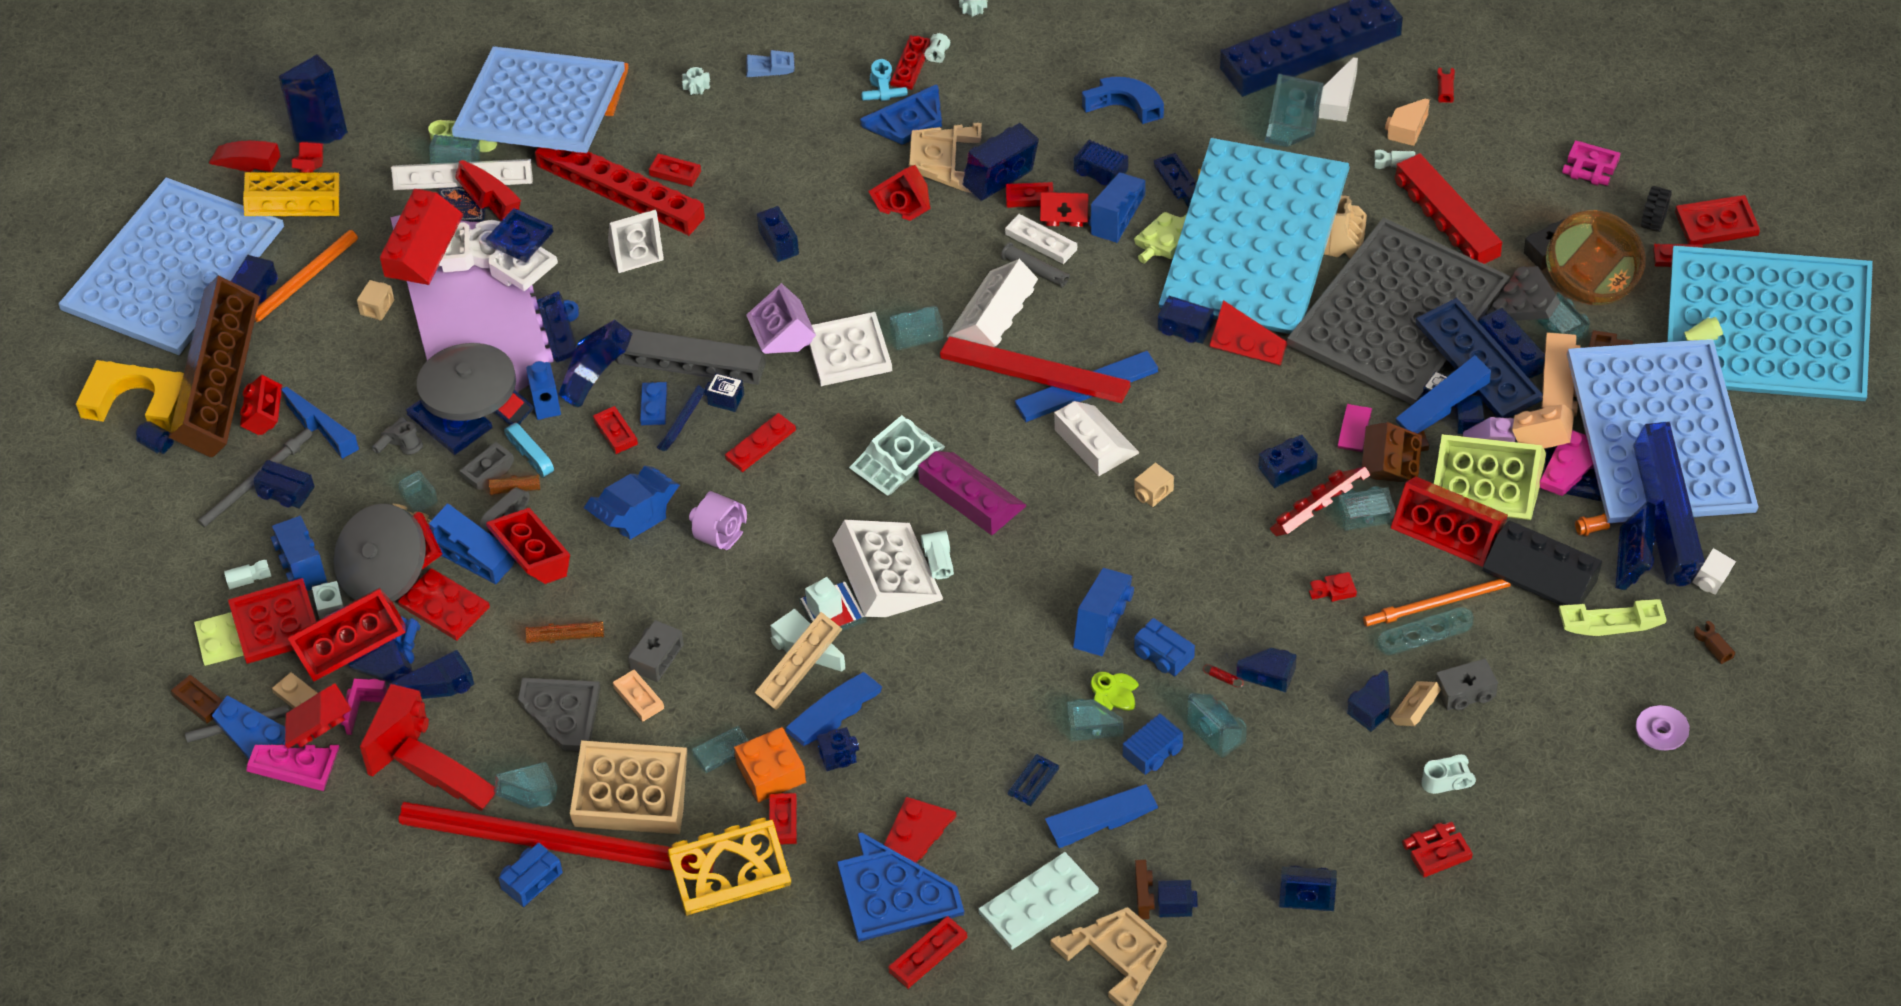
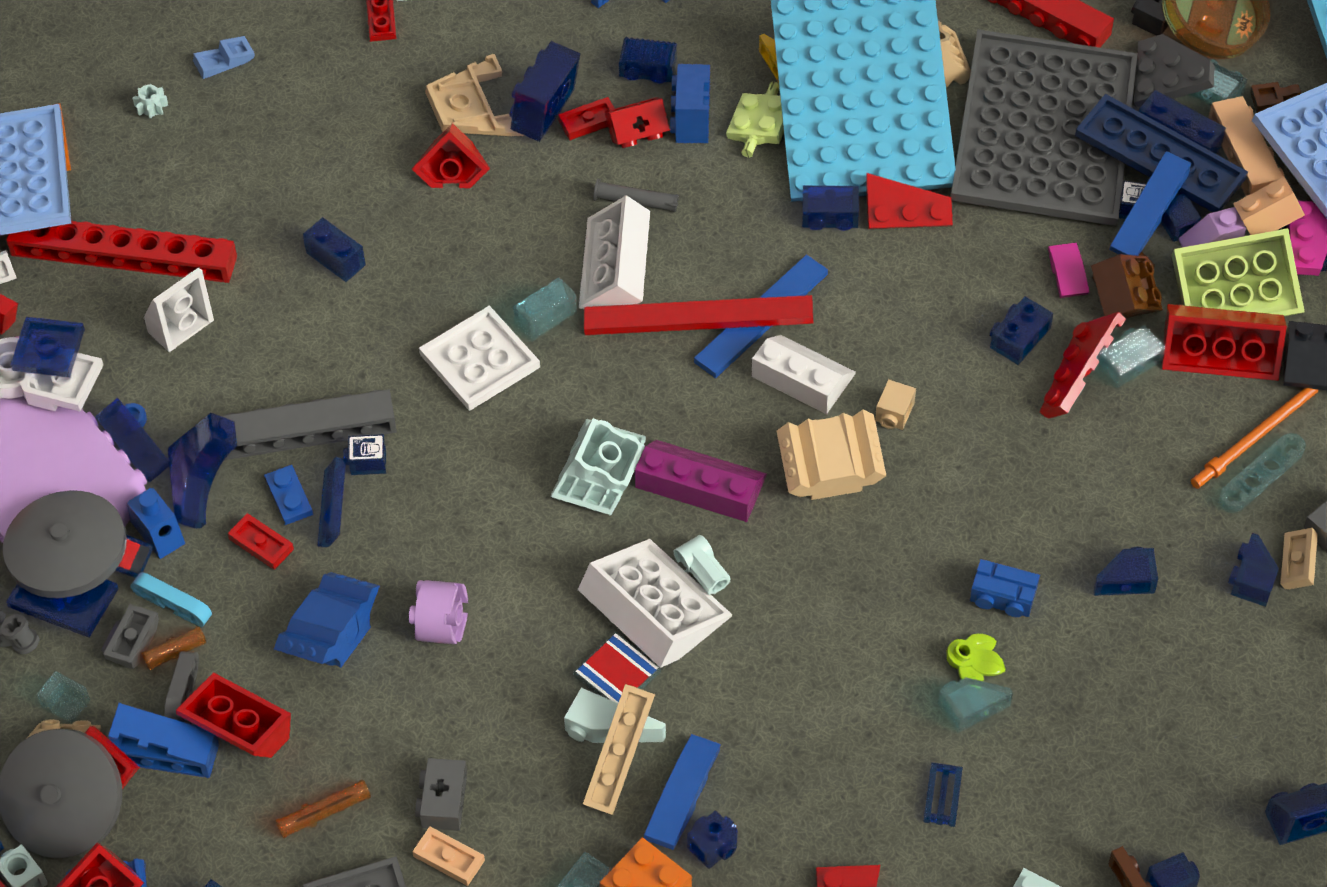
camera: 25 degrees left, 5 degrees up
(444, 604) = (161, 825): red plate -> none
(675, 170) = (176, 211): red plate -> none
(760, 442) = (434, 500): red plate -> none
(781, 322) = (393, 353): lavender slope -> none
(824, 598) = (609, 665): light aqua brick -> none
(881, 81) = (357, 36): medium azure piece -> none
(906, 115) = (408, 71): blue wing -> none
(1041, 239) = (626, 164): white plate -> none
(1077, 504) = (831, 455): none -> tan slope
(1092, 817) = (1039, 810): blue slope -> none
(1101, 611) = (920, 569): blue wedge -> none
(1153, 744) = (1052, 706): blue brick -> none
(1176, 176) = (737, 51): clear blue hinge -> none
(1215, 723) = (1108, 658): clear light blue slope -> none
(1222, 675) = (1080, 598): red piece -> none
(1335, 586) = (1143, 454): red plate -> none

